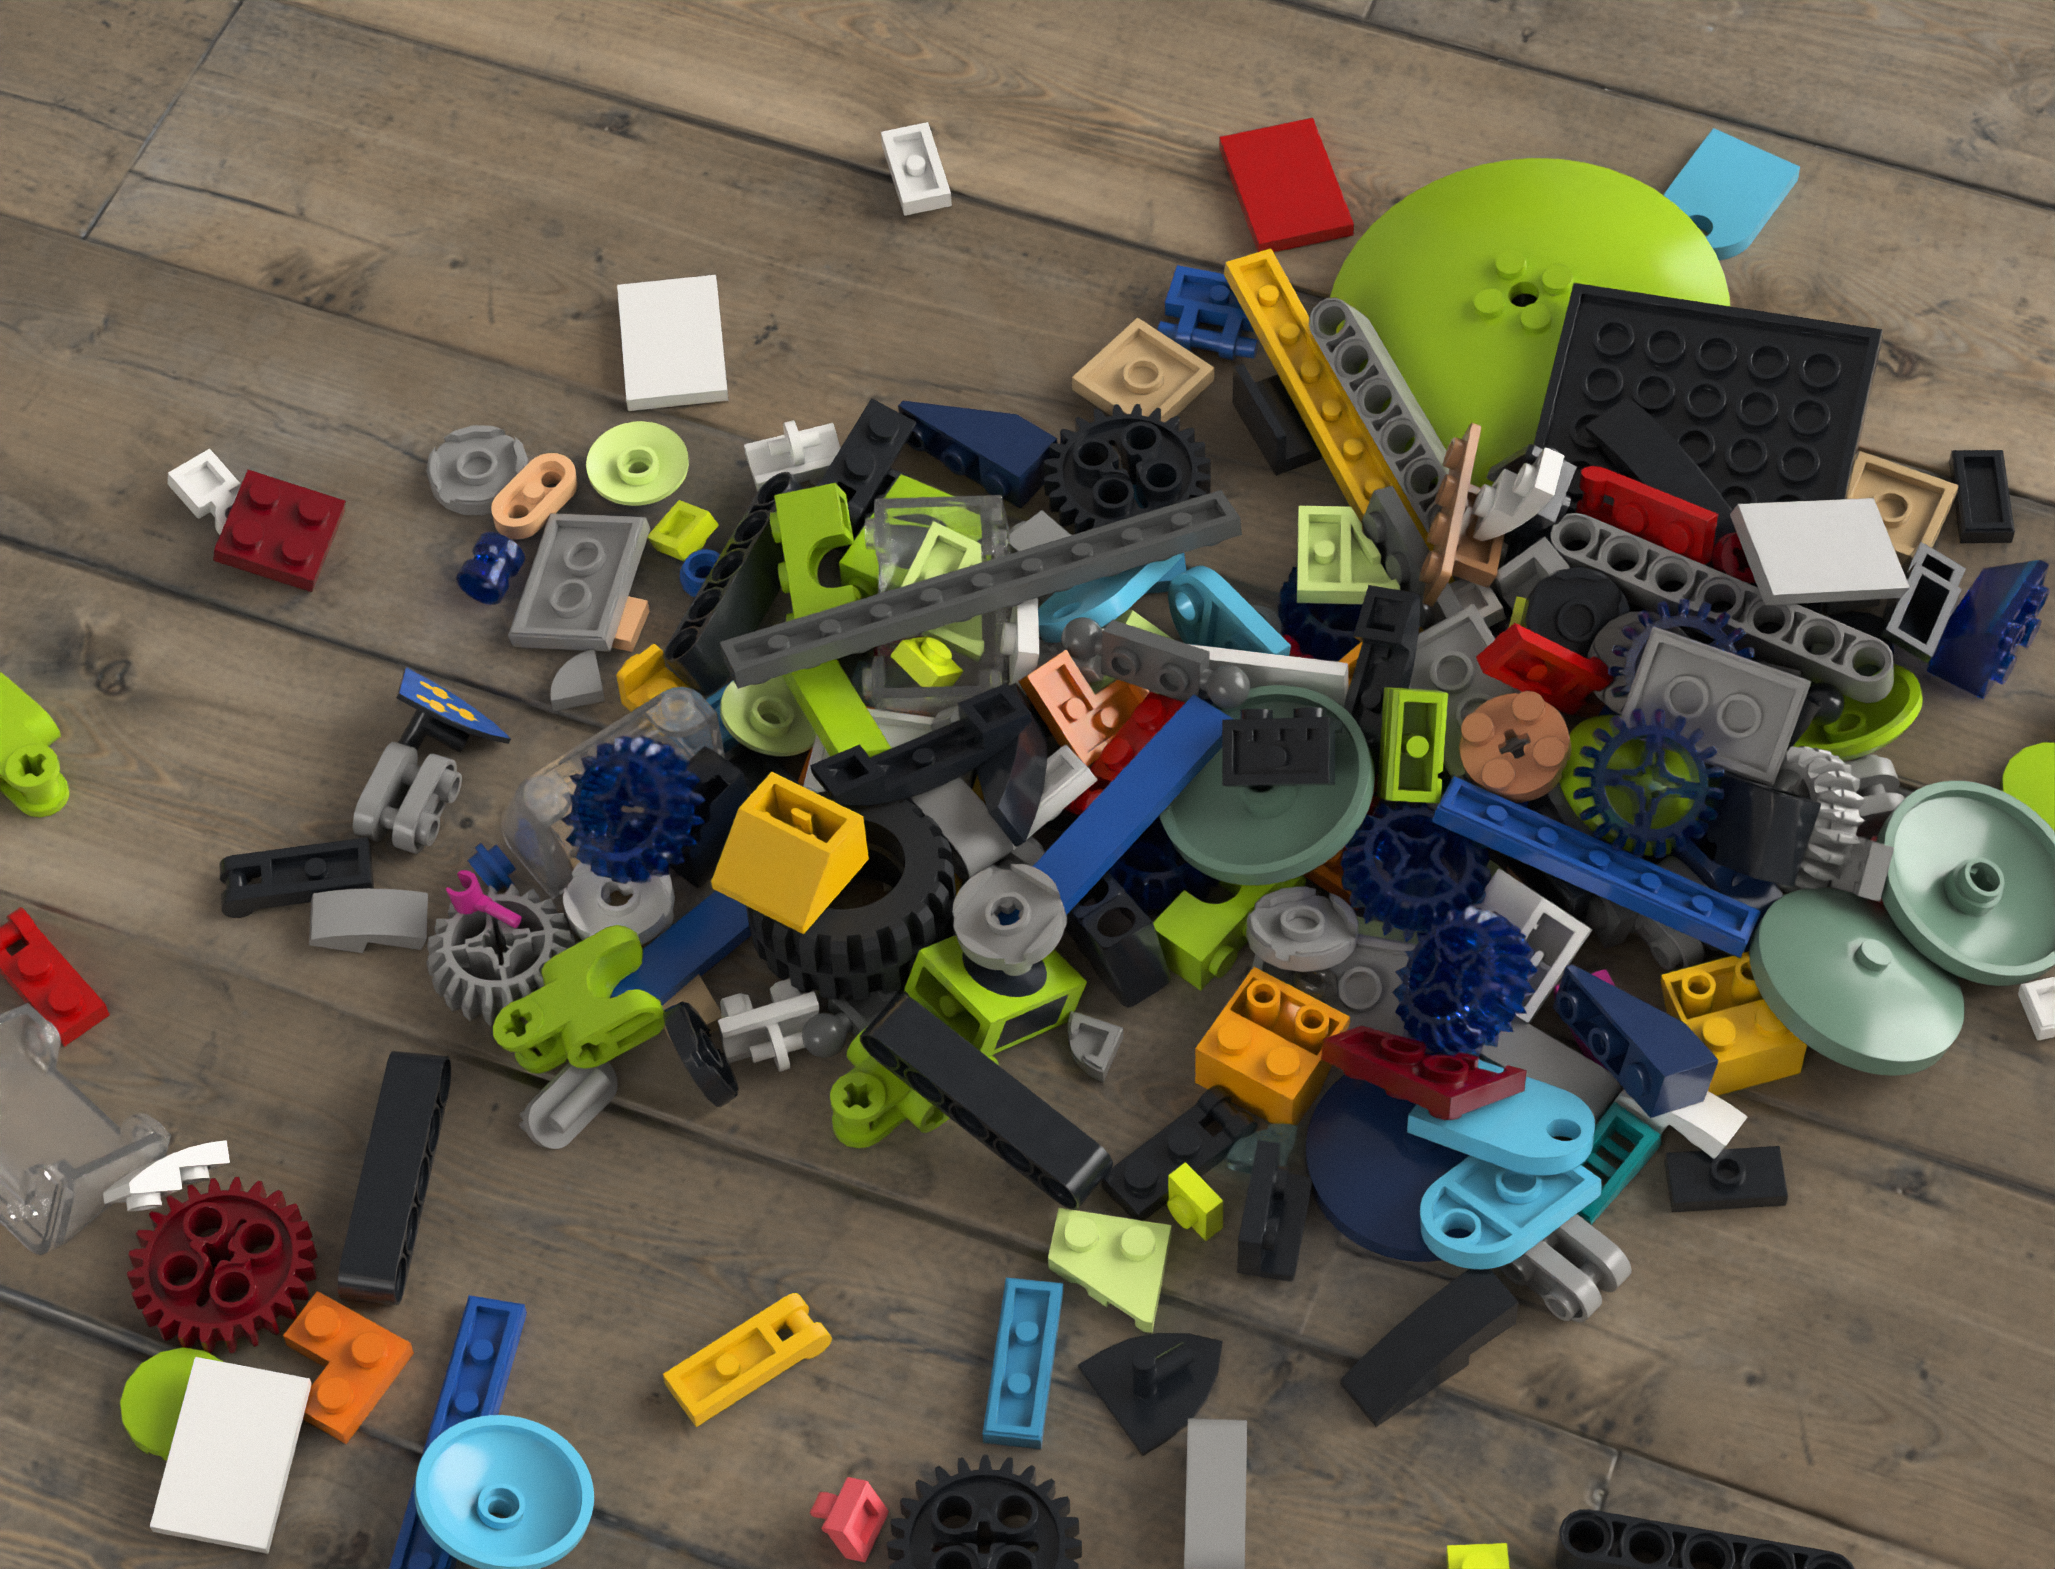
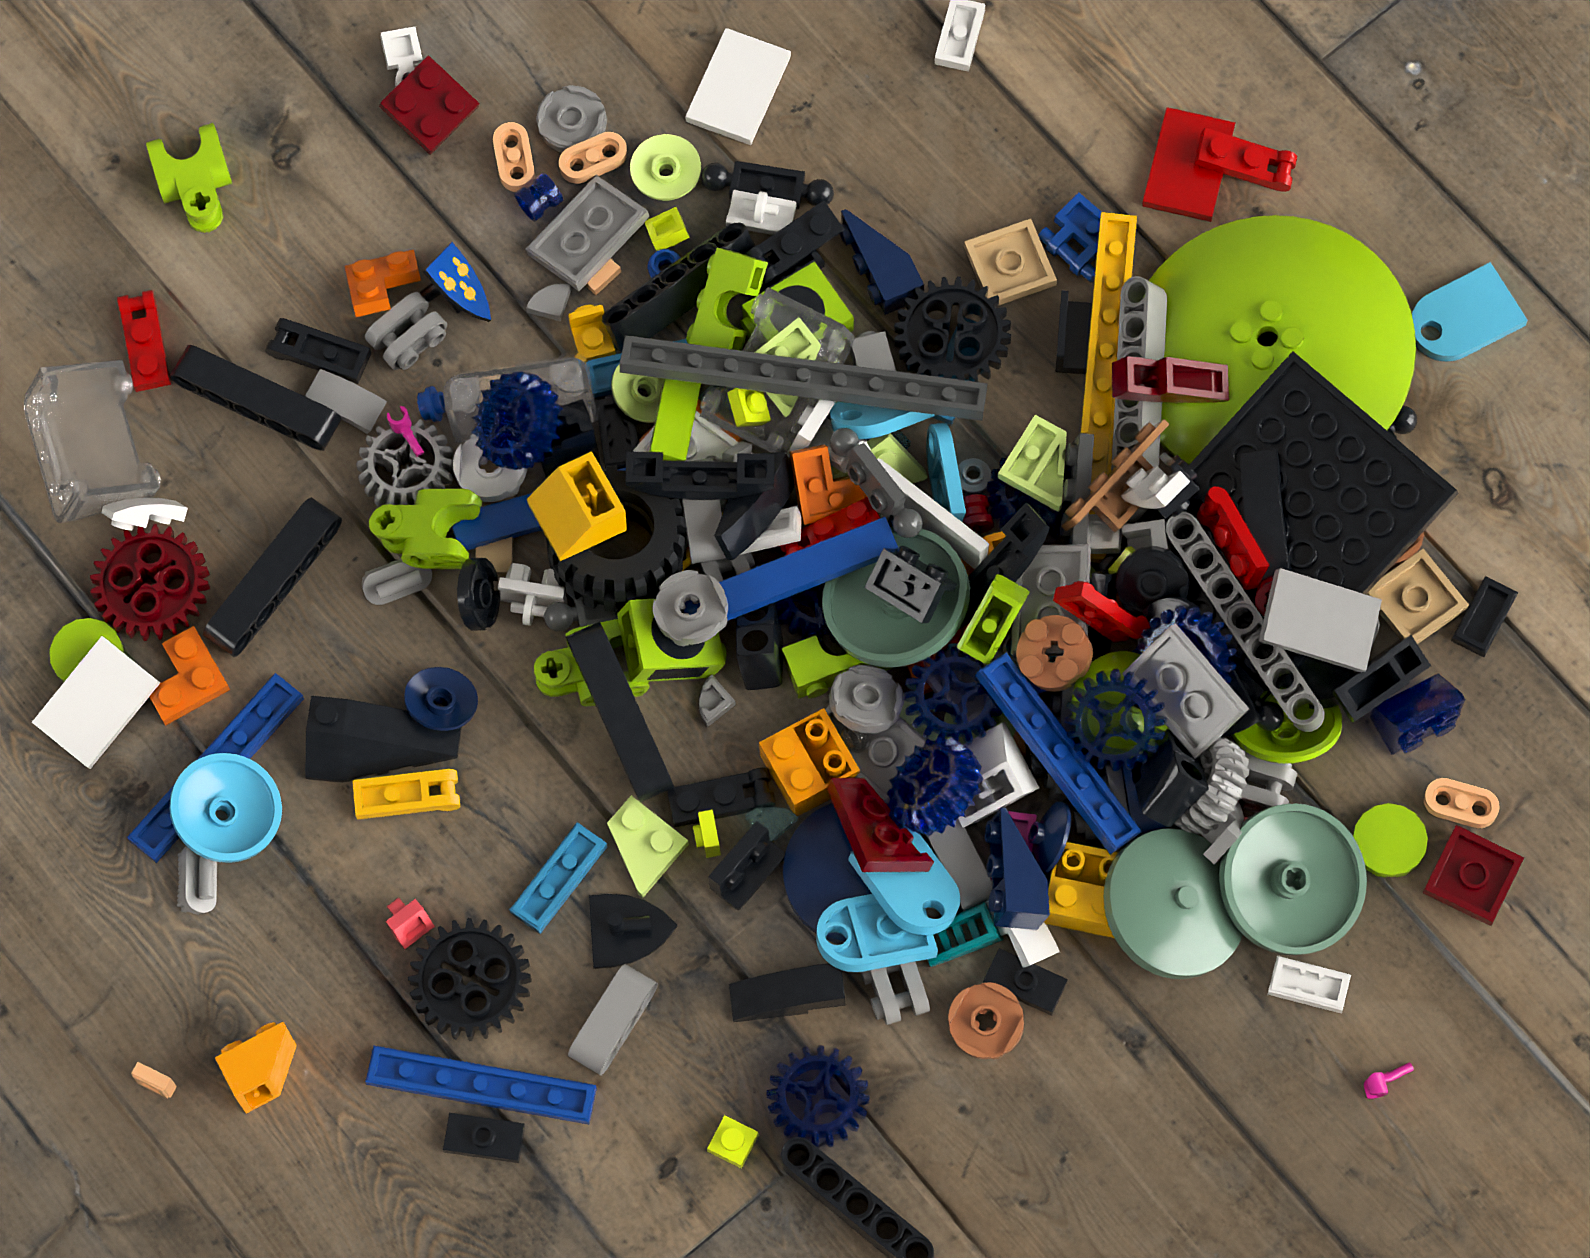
camera: 30 degrees right, 15 degrees up
(241, 970) = (255, 397): none -> black beam
(329, 759) = (371, 279): none -> orange plate
(433, 542) = (513, 159): none -> light nougat plate
(649, 1312) = (365, 738): none -> black wedge
(709, 447) = (776, 181): none -> black plate
(724, 1212) = (441, 687): none -> dark blue dish
(1353, 148) = (1245, 160): none -> red plate
(1439, 390) = (1169, 380): none -> dark red slope
(1598, 1442) = (827, 1067): none -> clear blue gear
(1649, 969) = (1050, 836): none -> dark blue dish
(1691, 1273) = (979, 1000): none -> nougat plate

